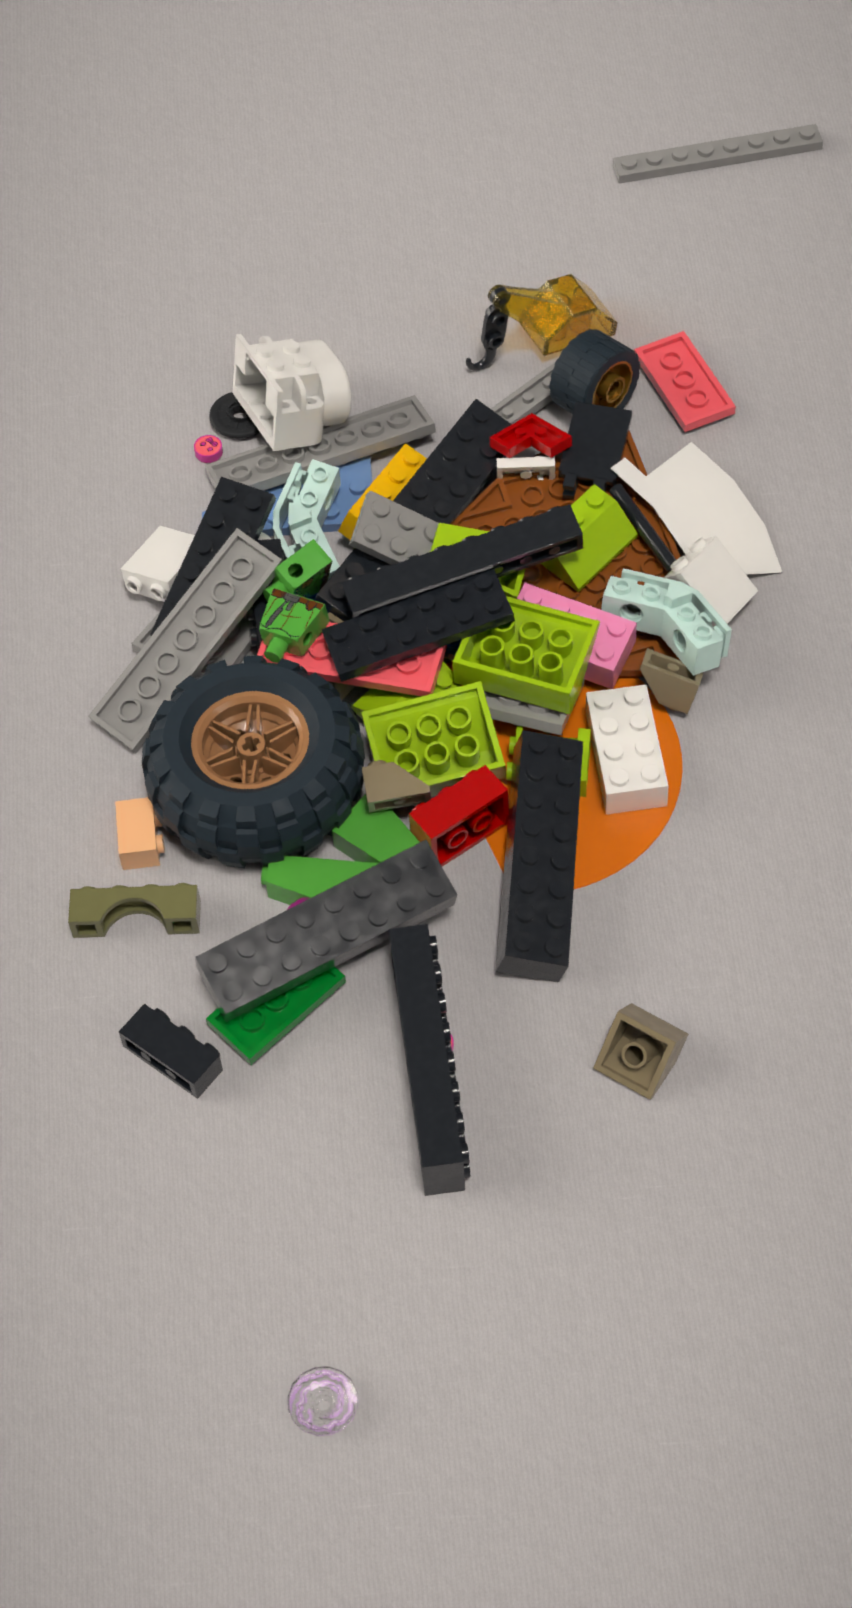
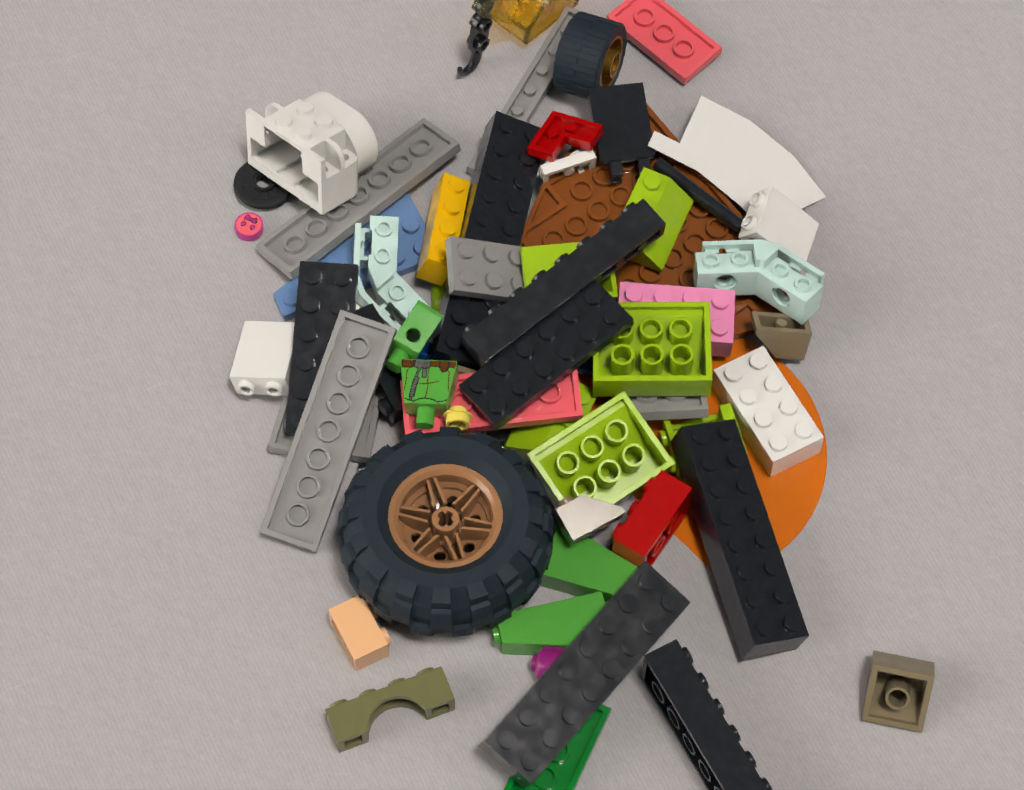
camera: 25 degrees left, 5 degrees up
(308, 658) = (458, 417): none -> light yellow plate

